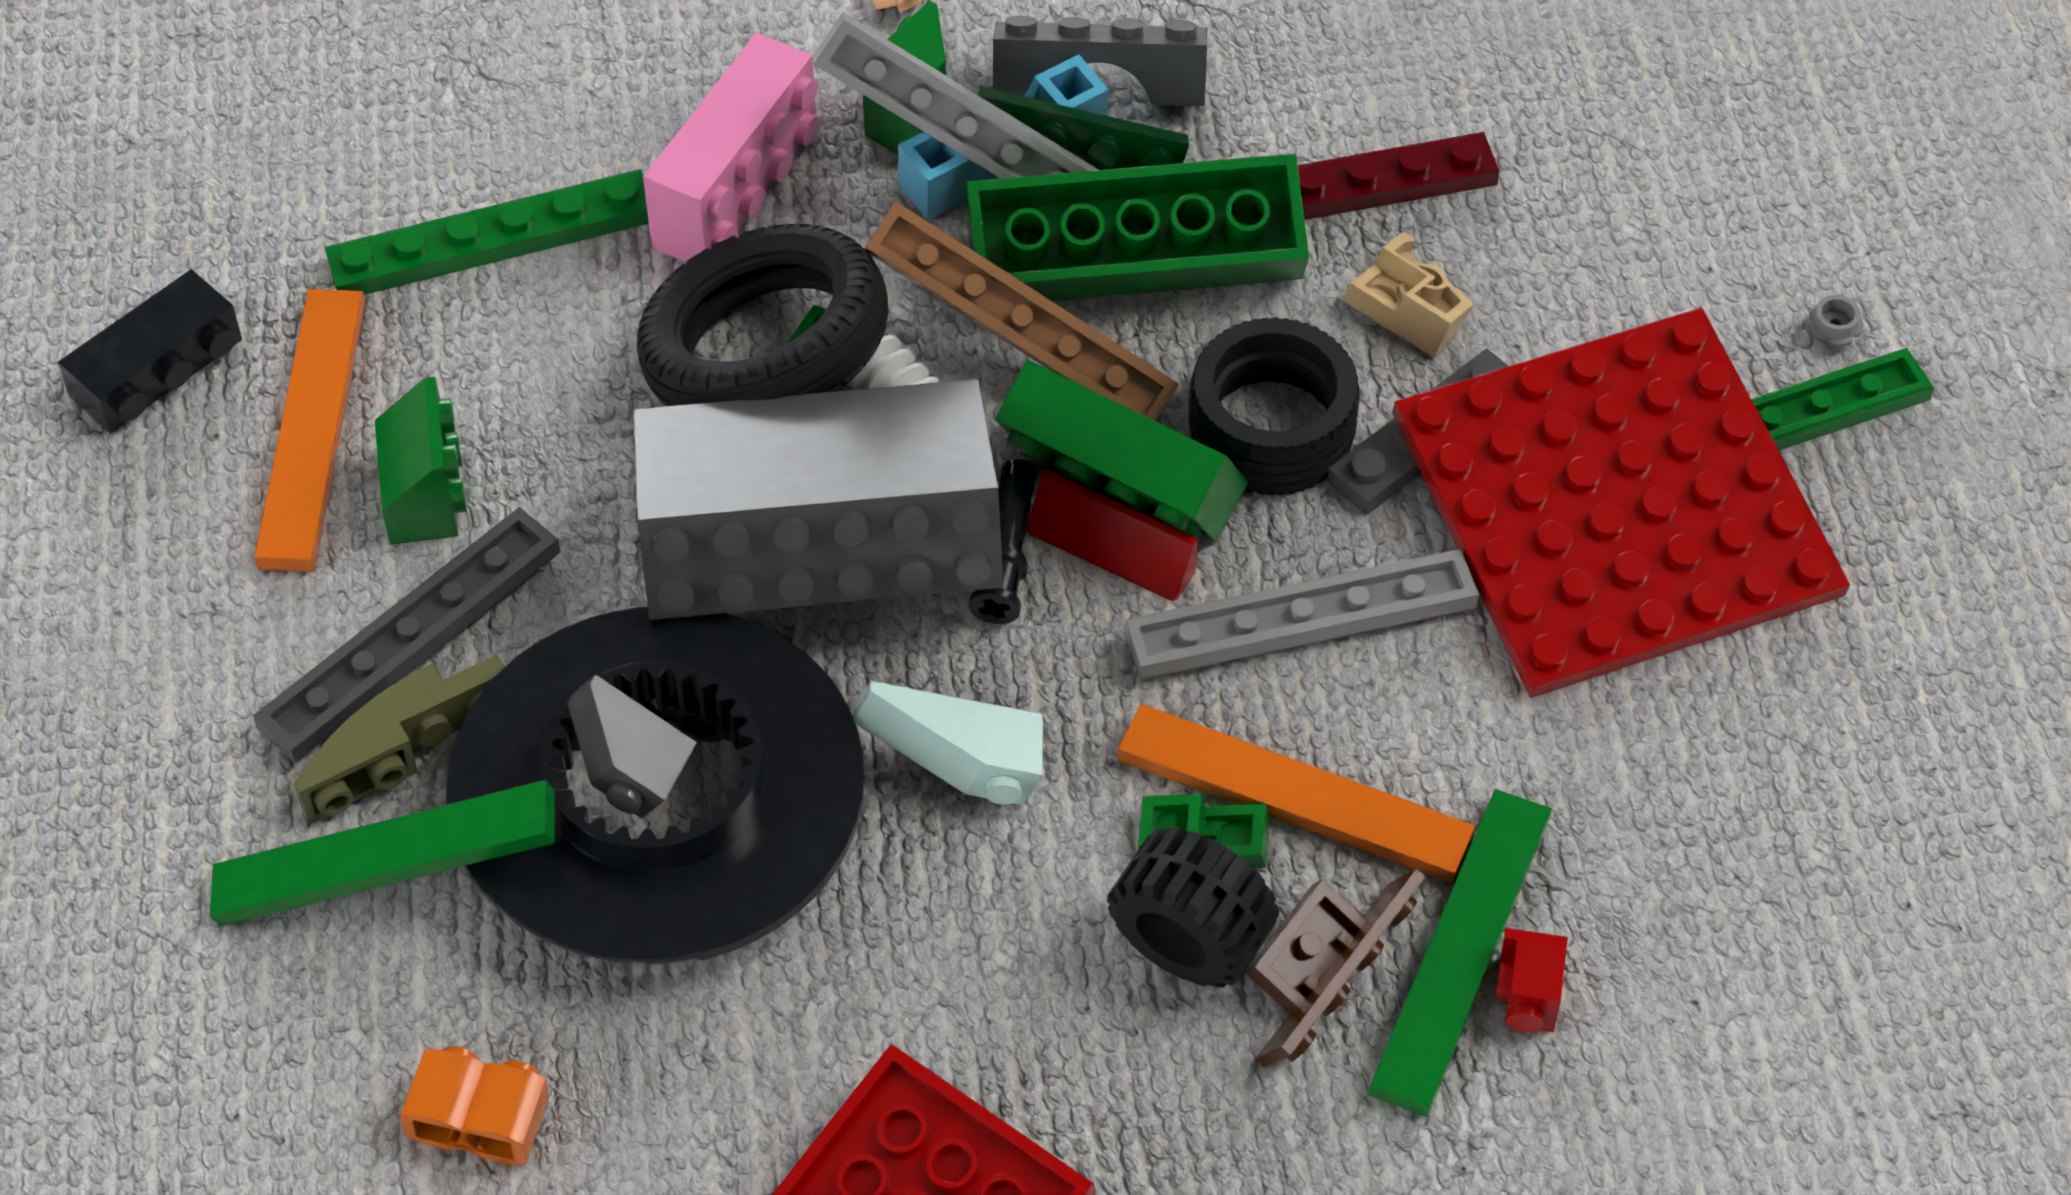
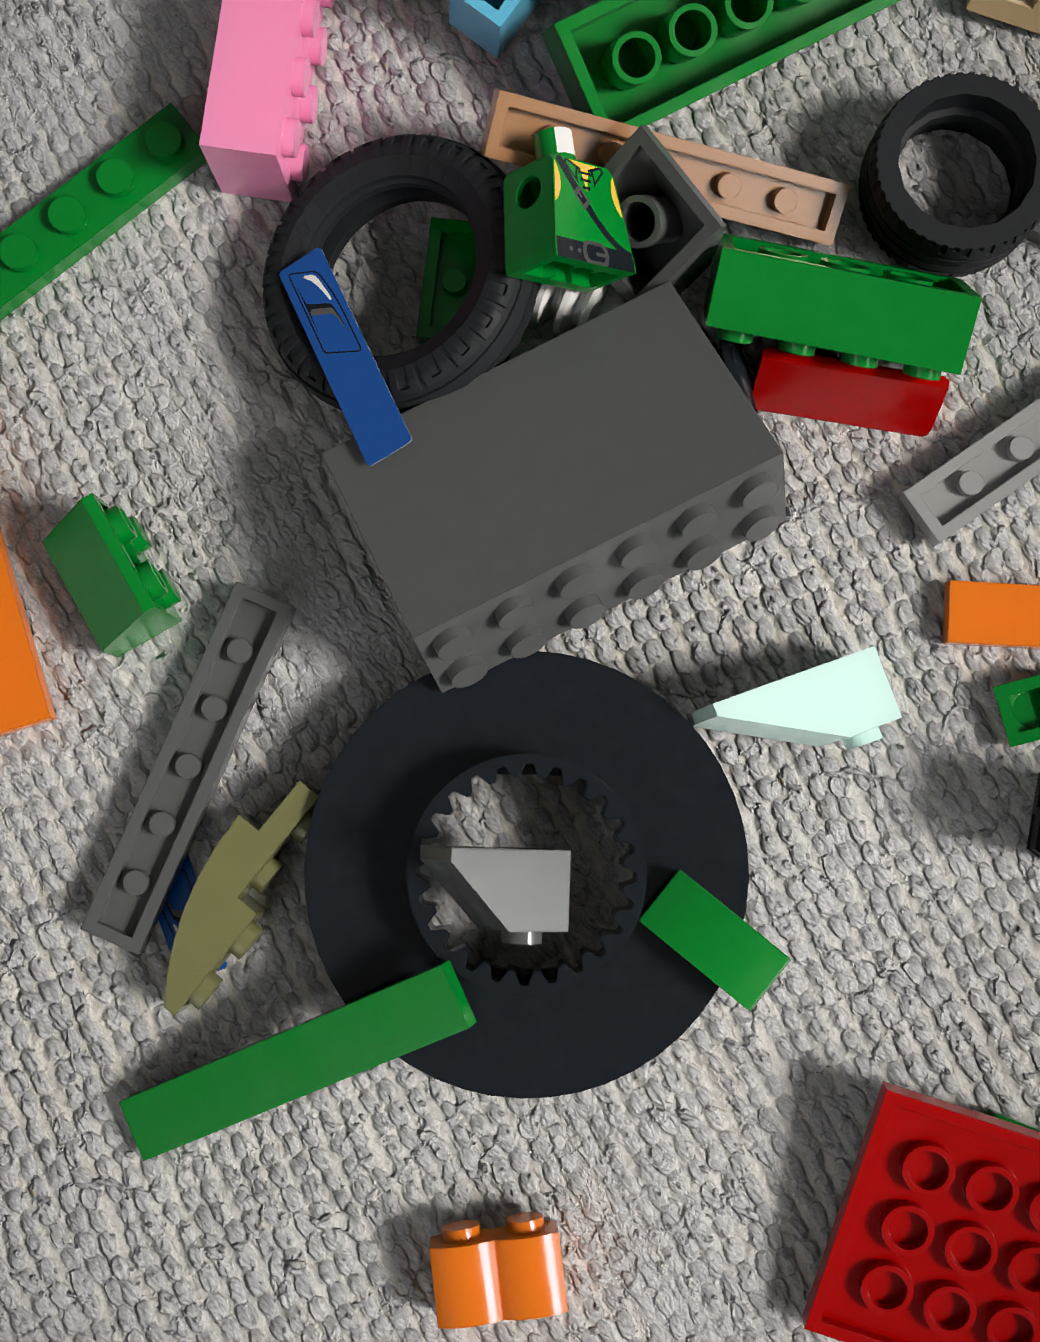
camera: 20 degrees left, 30 degrees up
(686, 351) = (345, 357): none -> blue sticker
(792, 867) = (715, 940): none -> green slope
(907, 307) = (564, 219): none -> green torso
(979, 335) = (665, 217): none -> dark grey slope

